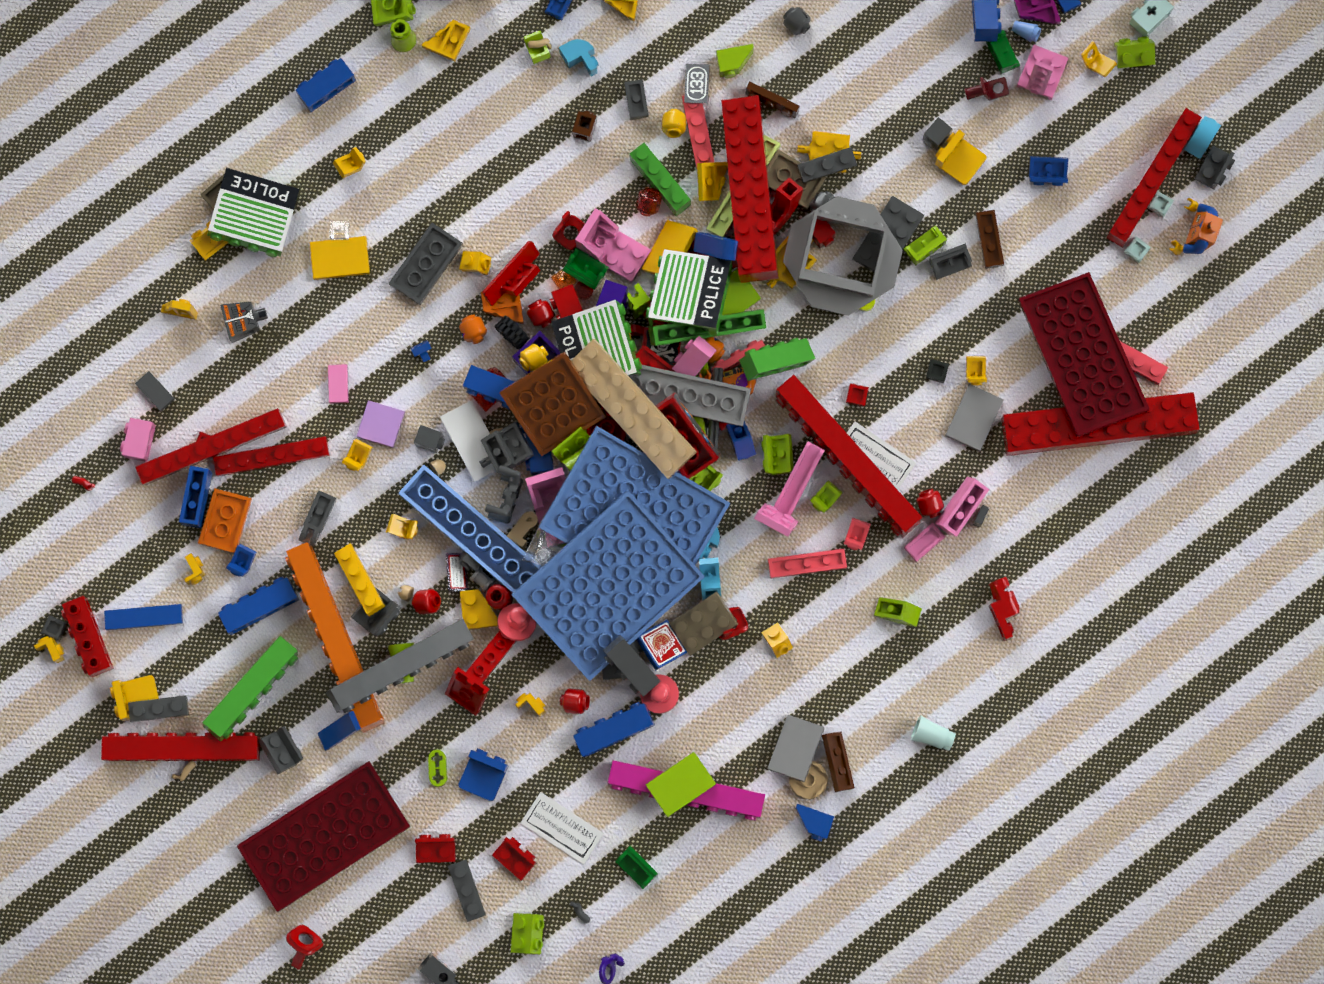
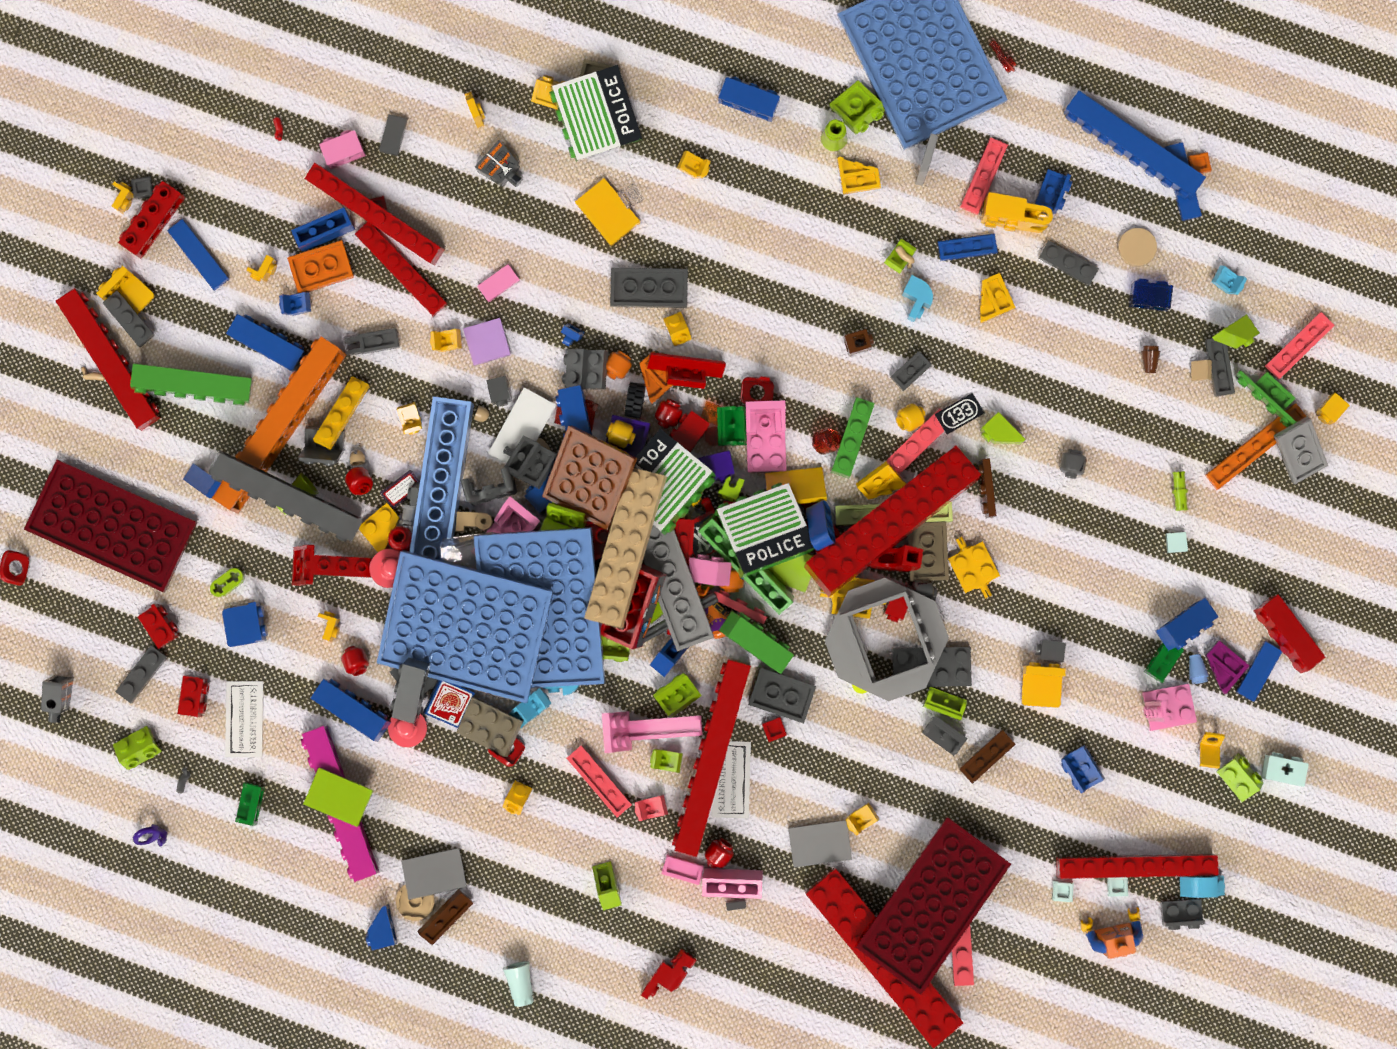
camera: 60 degrees right, 5 degrees up
(281, 750) = (158, 443): dark grey bracket -> none
(458, 356) = (585, 368): none -> dark grey plate
(827, 165) = (959, 573): dark grey plate -> none
(833, 370) = (782, 695): none -> dark grey plate
(937, 371) = (840, 785): pearl dark grey tile -> none
(986, 89) = (1120, 668): dark red bracket -> none

